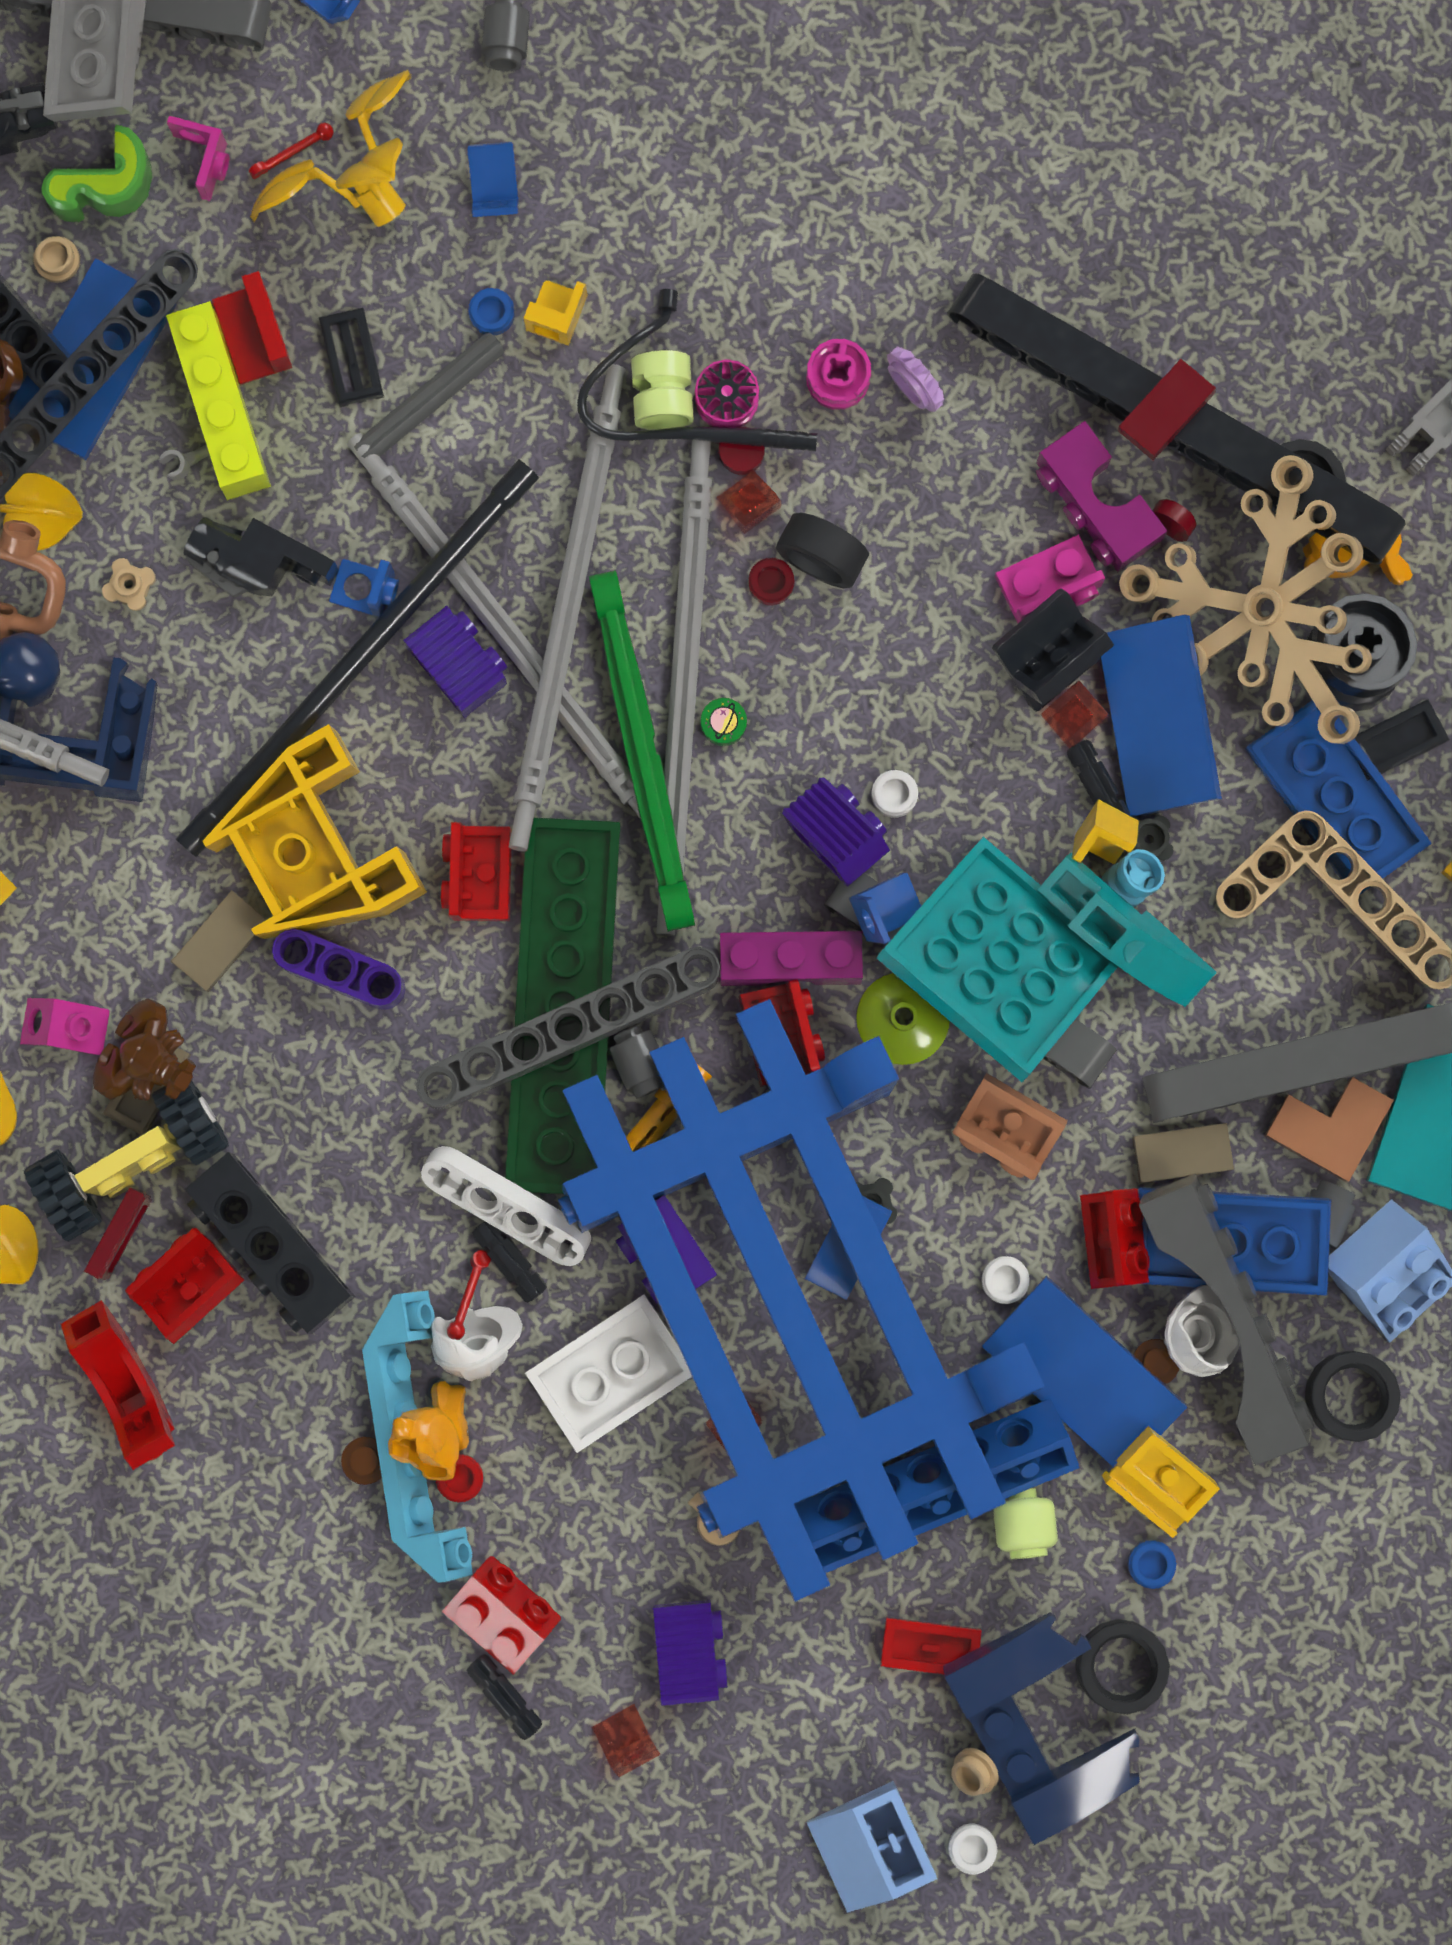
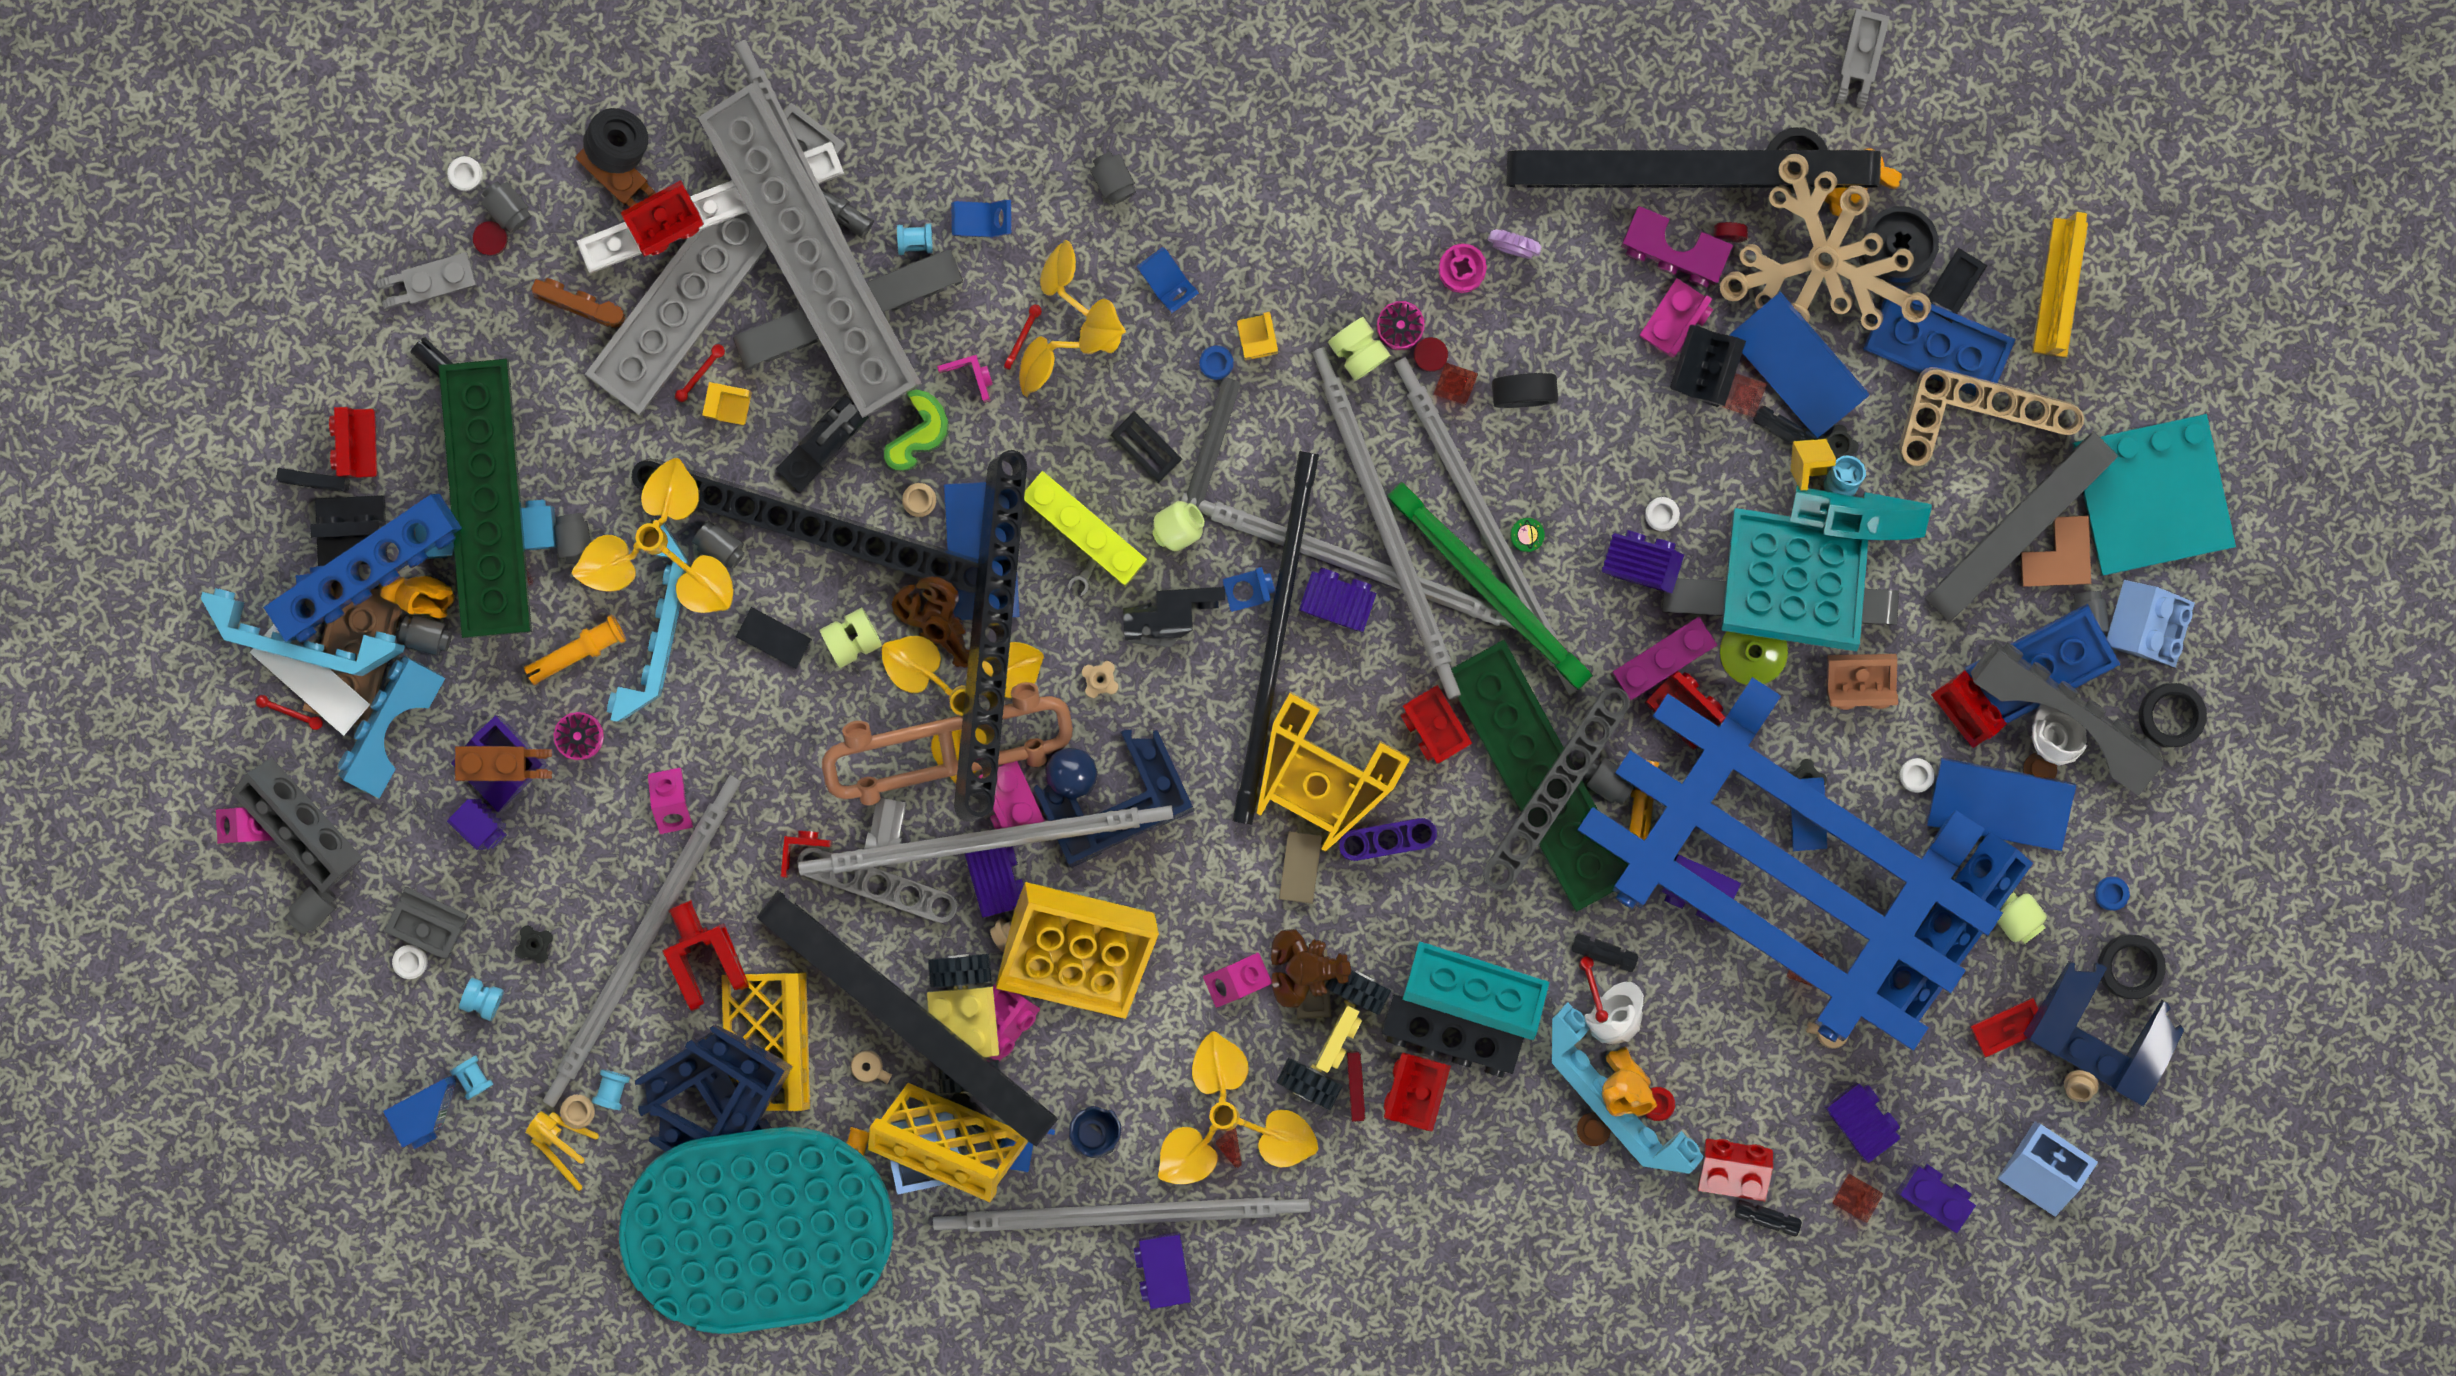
camera: 30 degrees left, 5 degrees up
(121, 1382) = (1418, 1176): red arch -> none
(252, 331) = (1073, 469): red panel -> none
(327, 1208) = (1476, 990): none -> teal plate
(328, 464) = (1178, 526): none -> yellowish green head
(503, 1211) = (1582, 926): white beam -> none
(610, 1373) = (1710, 983): white plate -> none
(716, 1799) = (1935, 1198): none -> dark purple brick
(742, 436) = (1430, 345): black piece -> none
(771, 581) = (1501, 426): dark red tile -> none
(885, 907) = (1705, 593): blue bracket -> none
(972, 1848) = (2107, 1132): white tile -> none
(1160, 1481) = (2087, 840): yellow plate -> none
(1167, 409) = (1688, 170): dark red tile -> none
(1183, 1153) = (1978, 629): dark tan tile -> none

